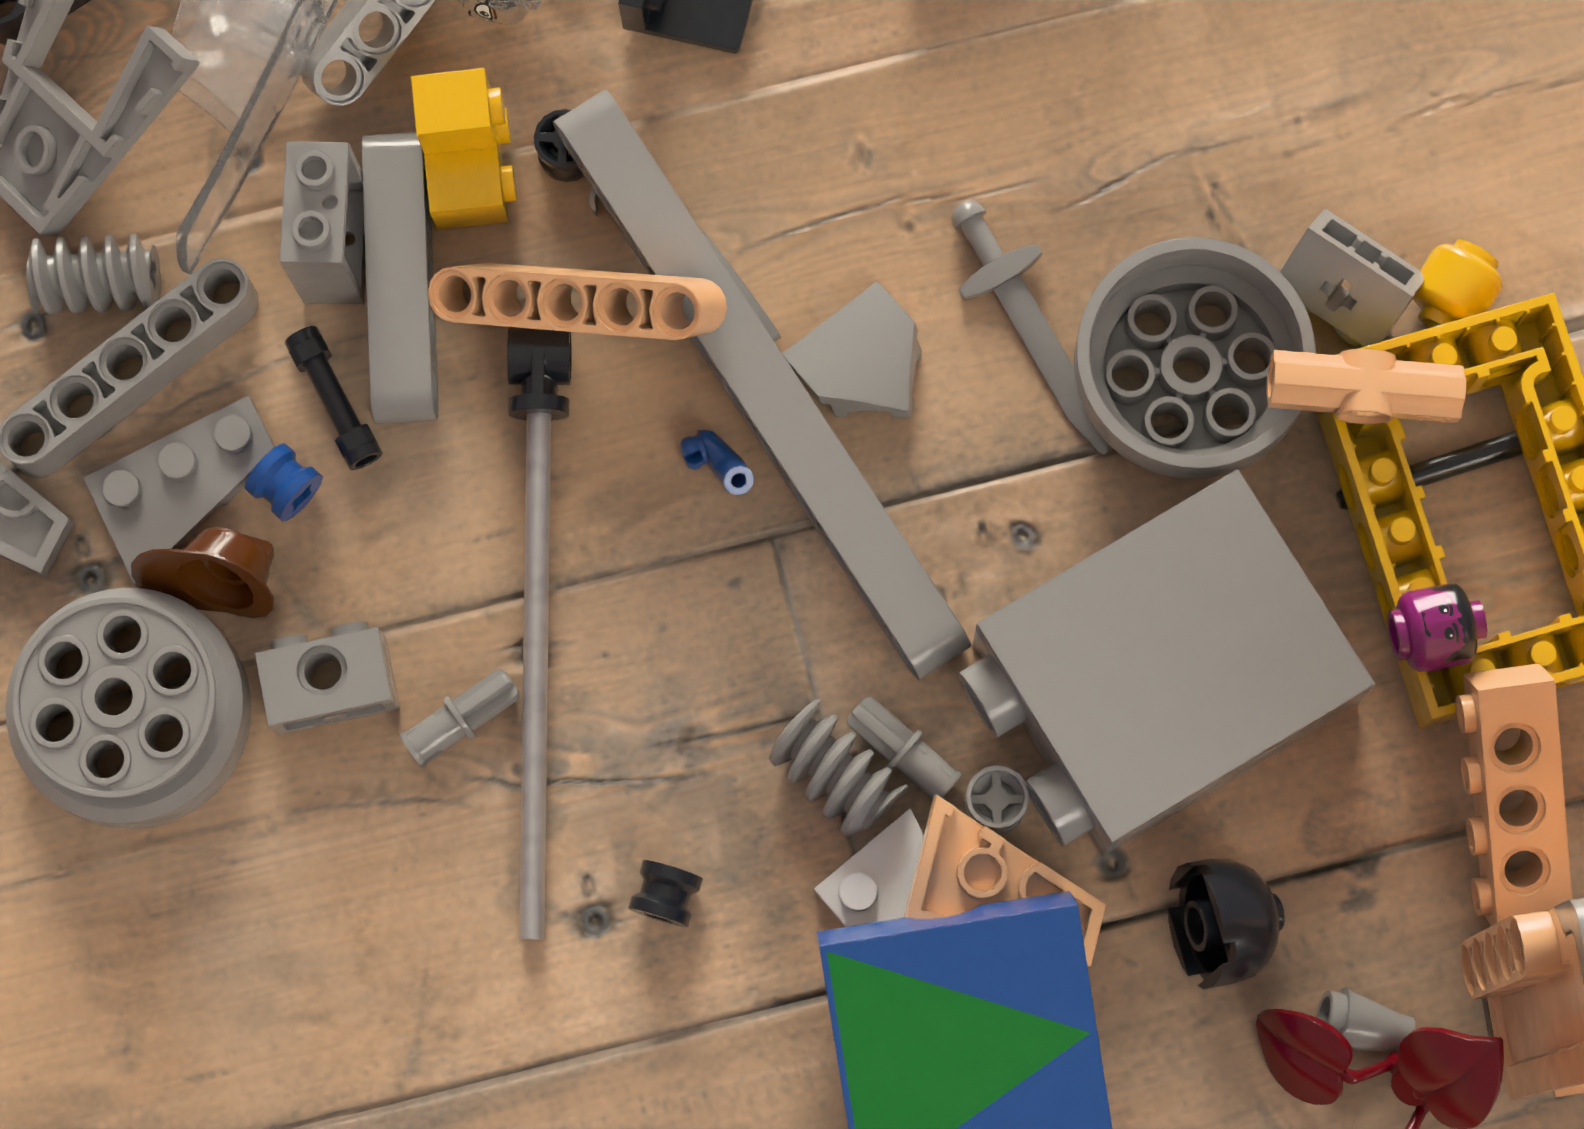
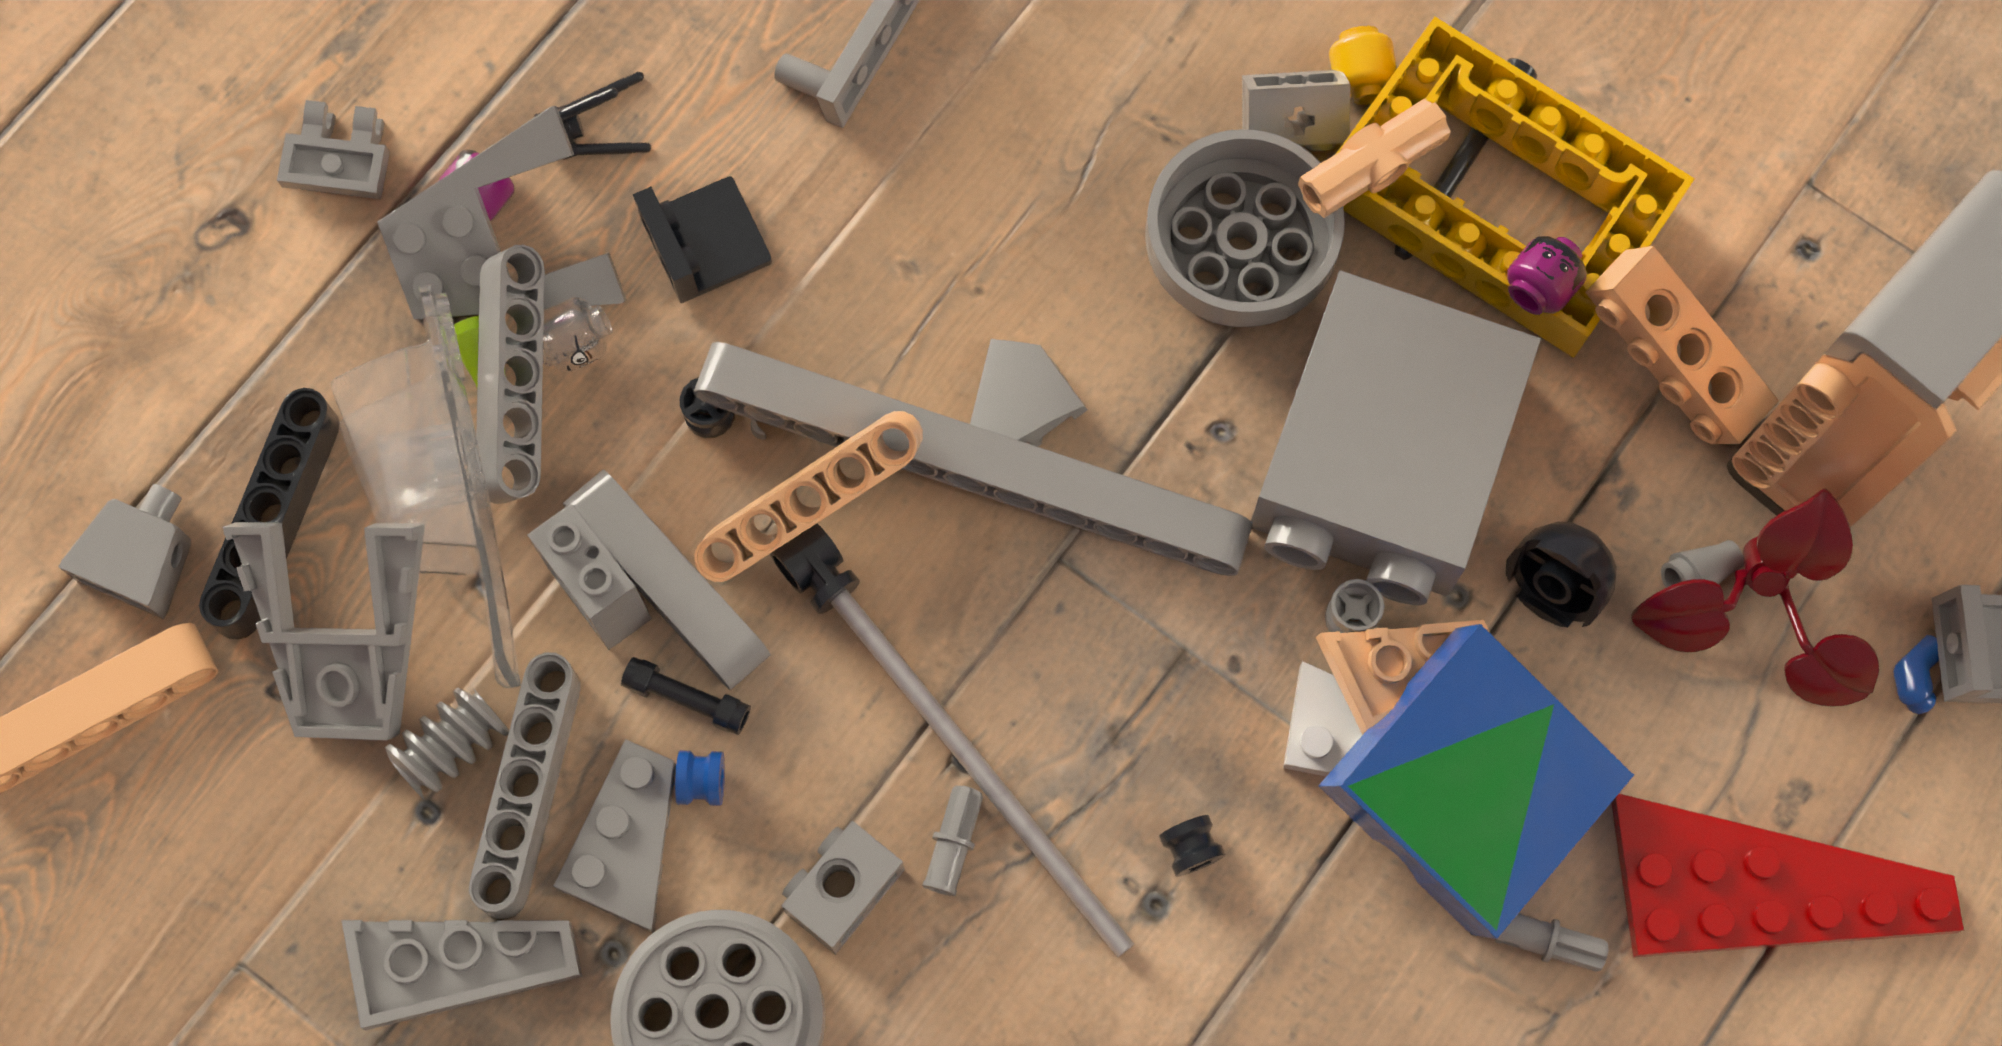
camera: 45 degrees left, 5 degrees down
(213, 573) = (703, 876): reddish brown piece -> none
(461, 136) = (632, 448): yellow brick -> none
(722, 459) = (985, 534): blue arm -> none
(834, 771) = (1235, 673): light grey piece -> none
(902, 748) = (1265, 626): light grey axle -> none
(1002, 275) = (1068, 275): light grey sword -> none

